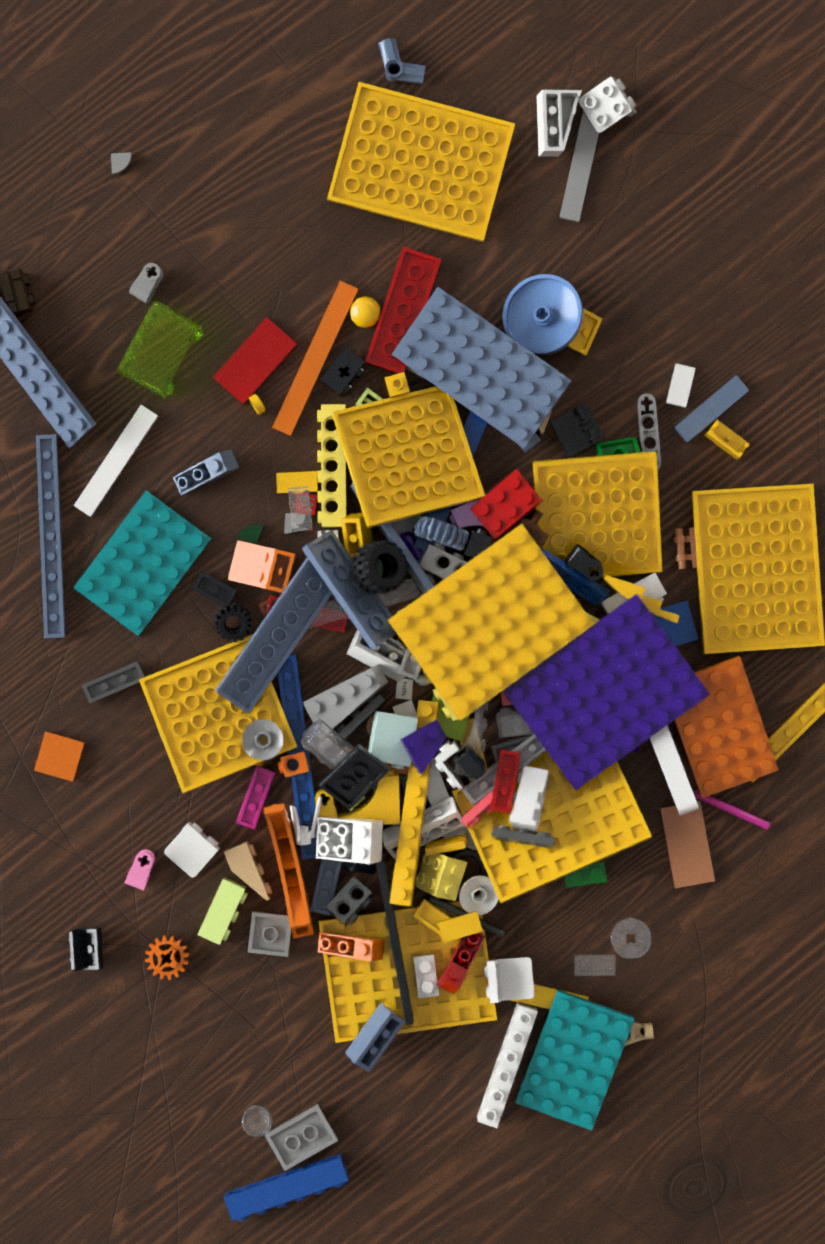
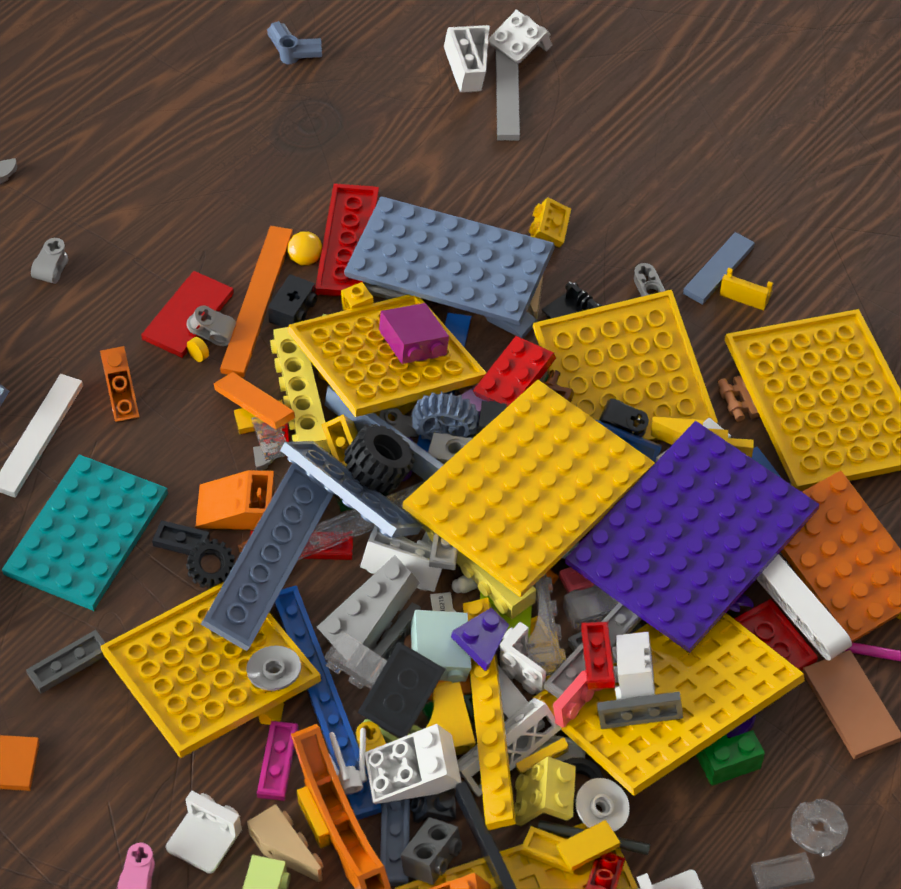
camera: 10 degrees left, 35 degrees down
(159, 349) = (70, 315): clear neon green windscreen -> none
(187, 426) = (119, 384): none -> orange slope
(206, 471) = (151, 421): sand blue slope -> none
(251, 533) = (214, 473): dark green tile -> none
(271, 853) = (313, 817): none -> yellow tile
(273, 385) = (213, 325): none -> light grey piece
(293, 471) = (254, 400): none -> orange tile
(302, 760) = (325, 688): orange brick -> none
(421, 161) = (335, 116): yellow plate -> none
(433, 445) = (413, 333): none -> magenta brick
(470, 763) = (546, 633): black brick -> none
(543, 314) = (509, 203): medium blue dish -> none
(646, 780) = (778, 633): none -> red plate
(680, 385) = (677, 253): white tile -> none

